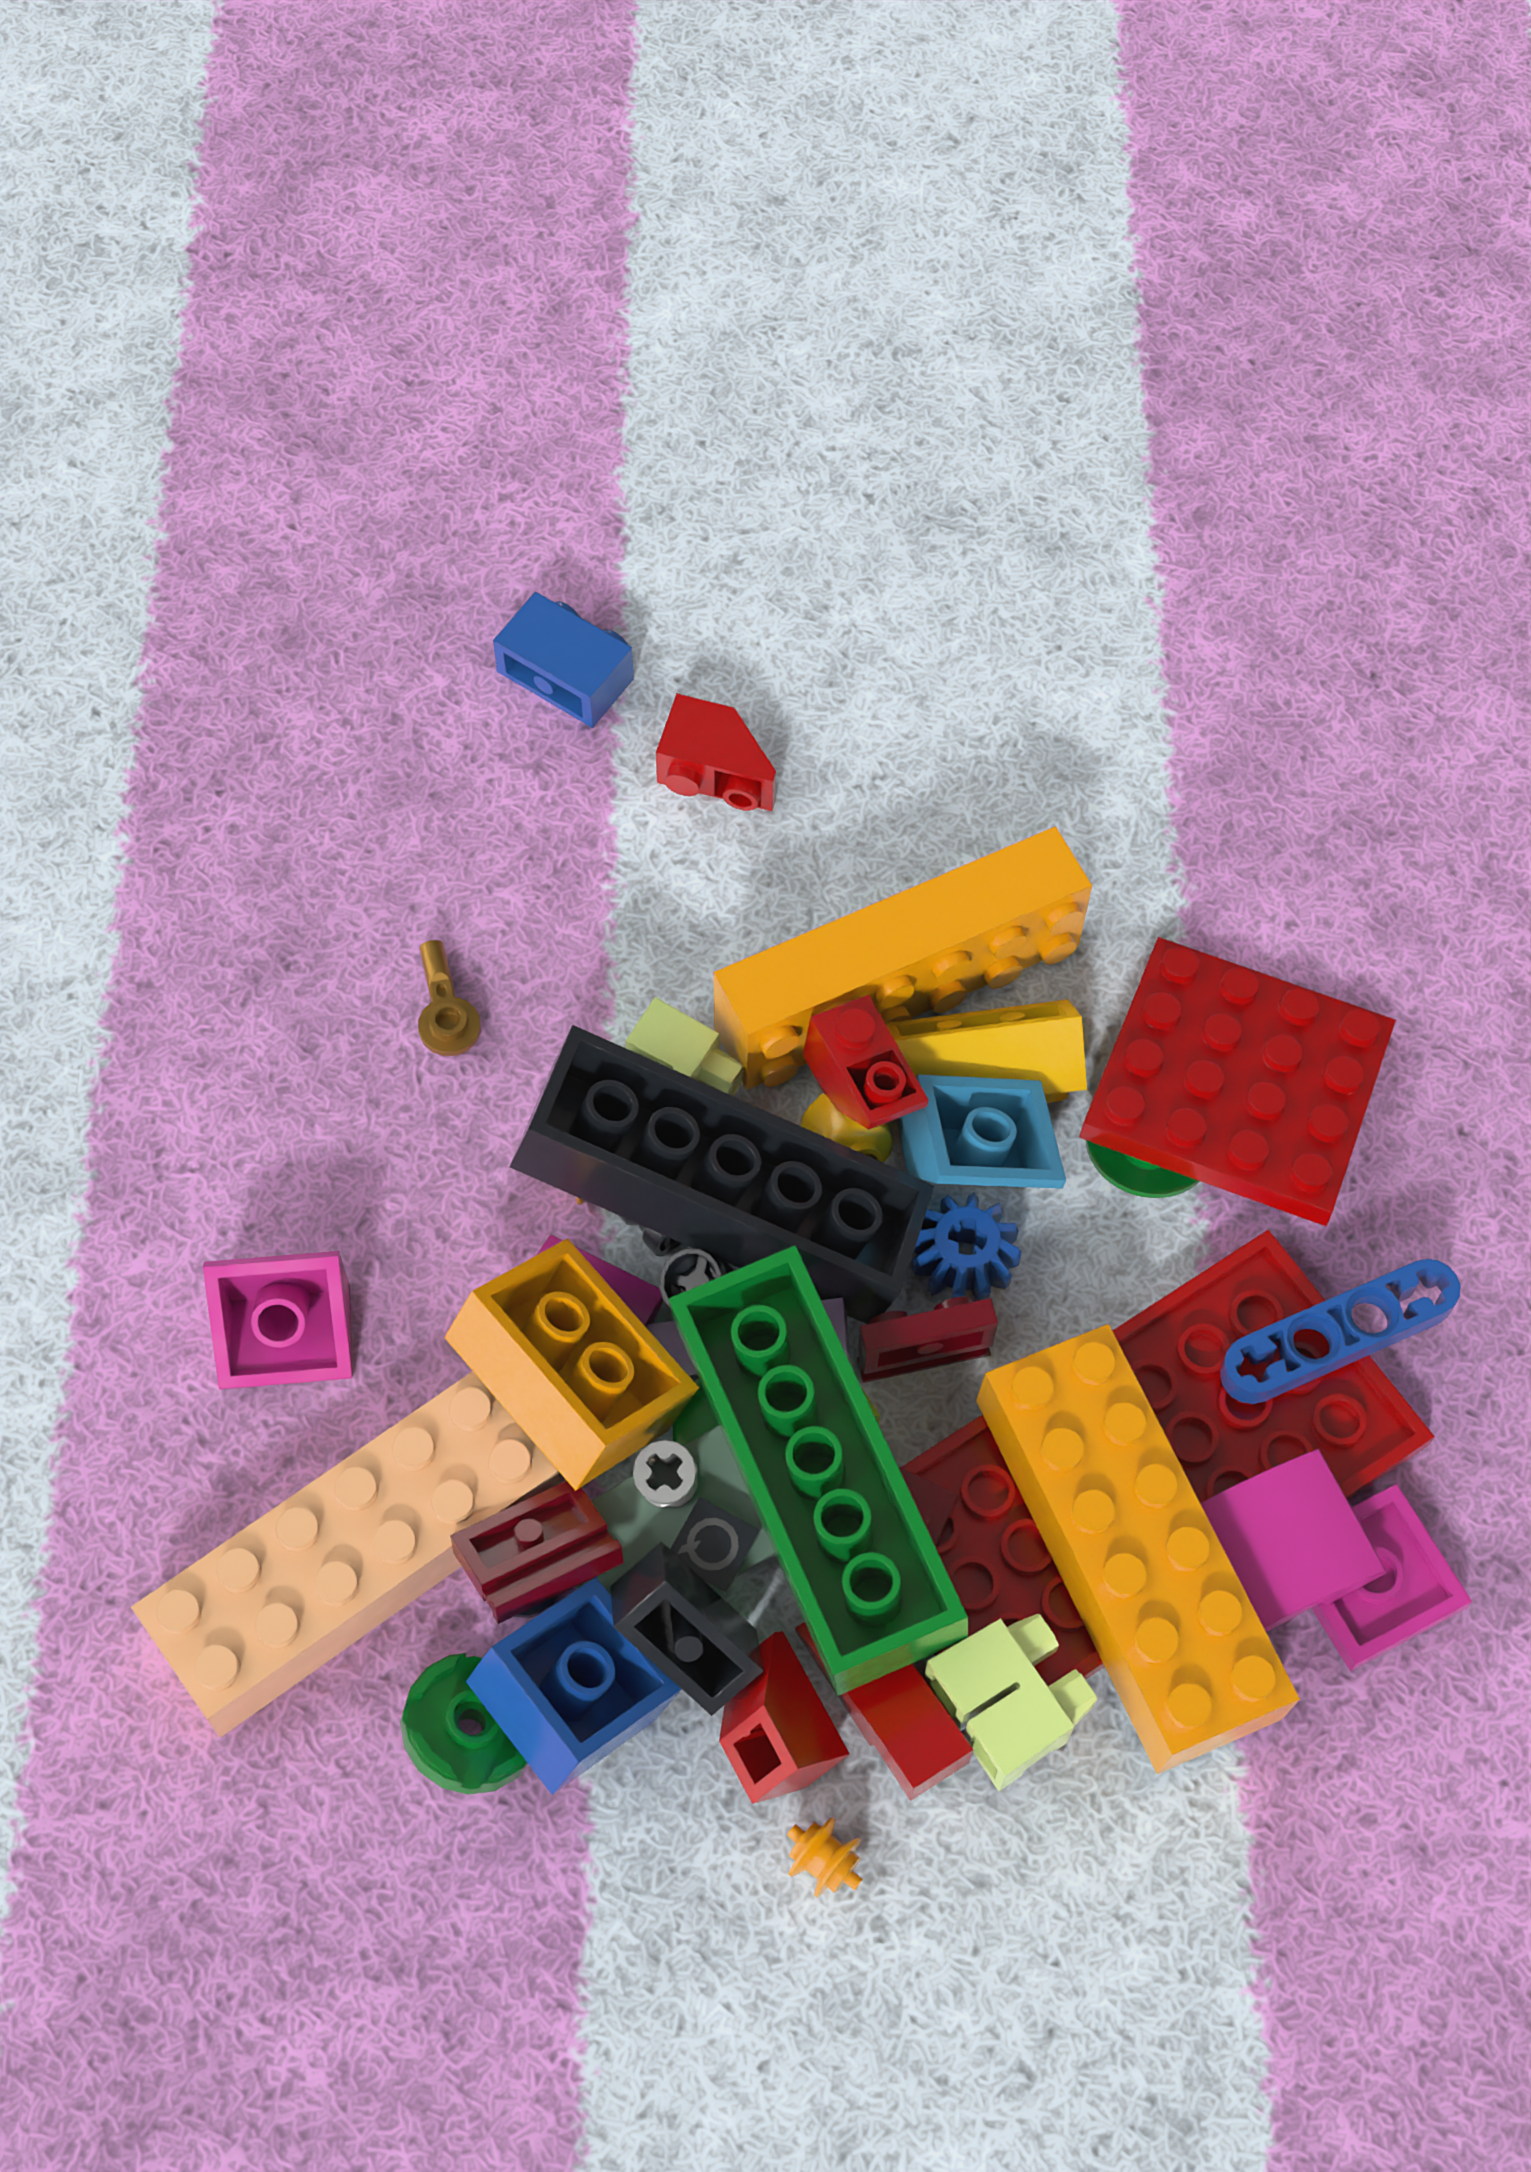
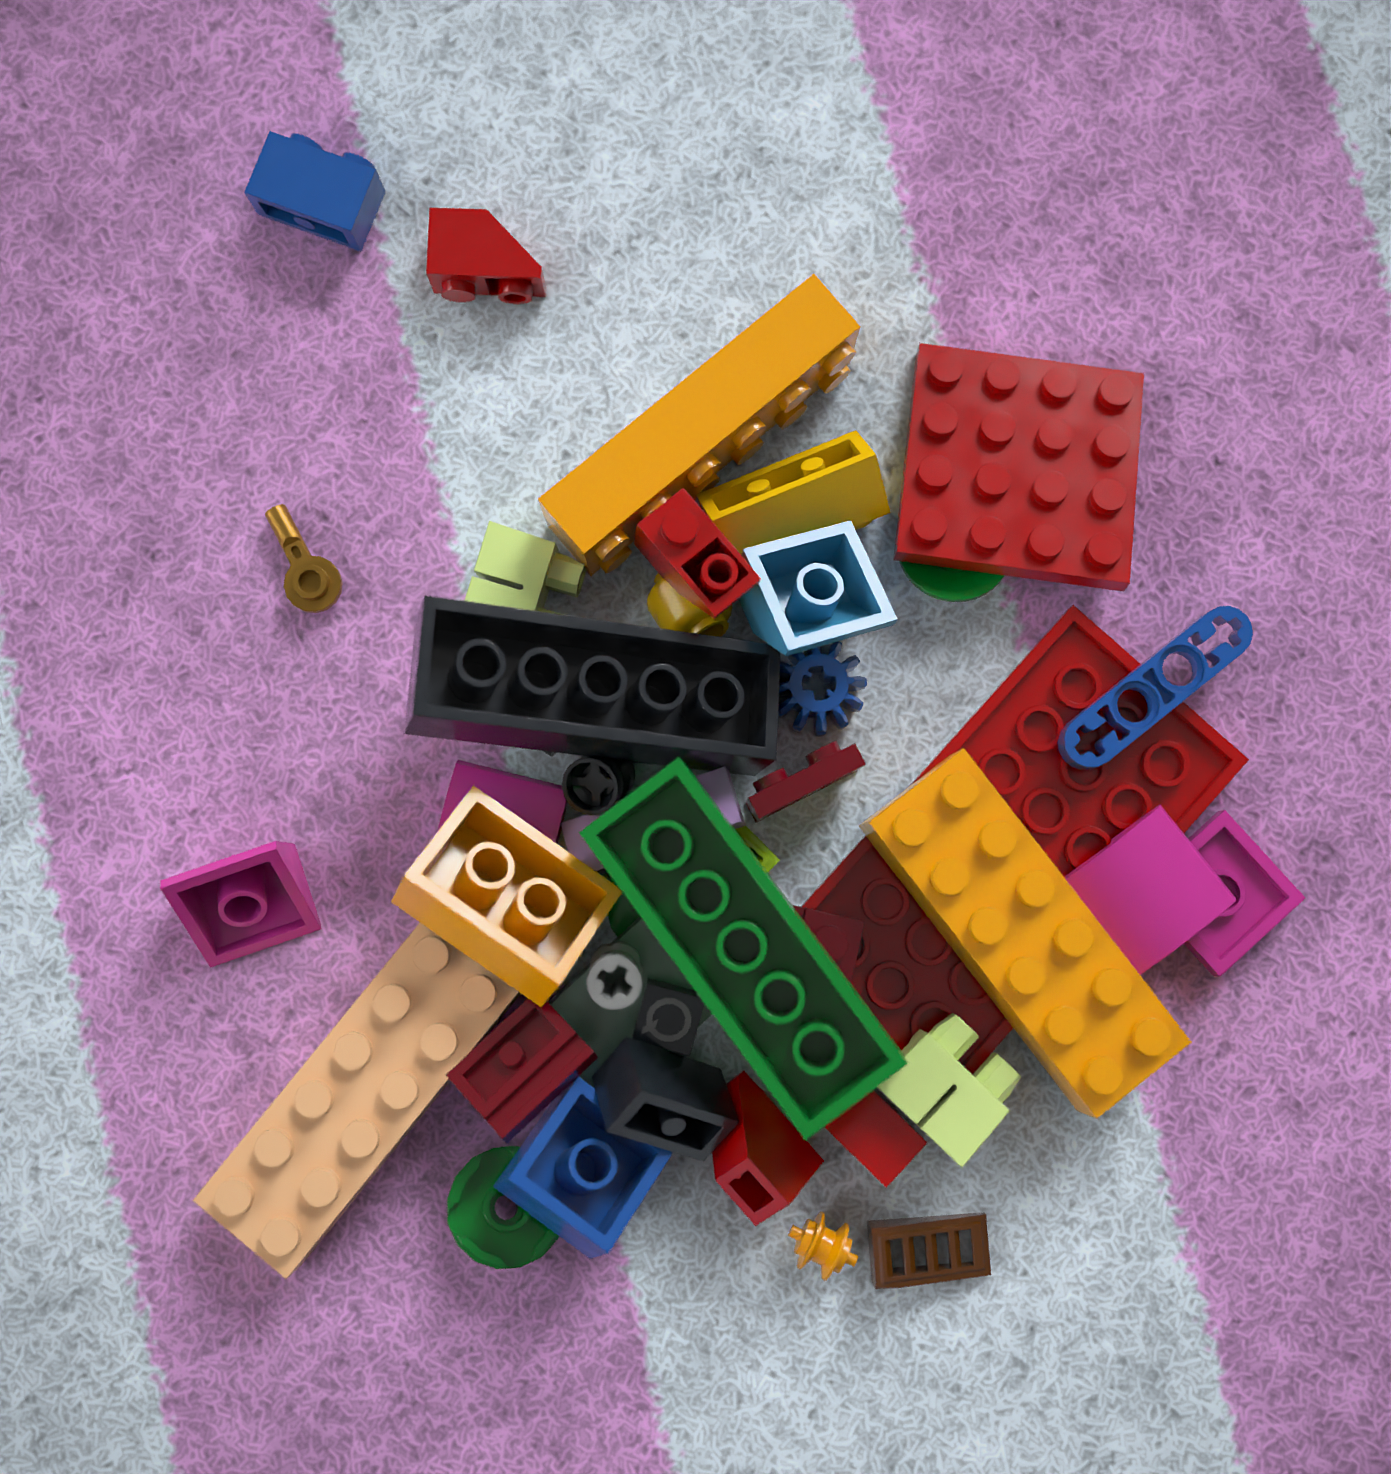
camera: 15 degrees left, 20 degrees up
(917, 1919) = (887, 1277): none -> reddish brown slope

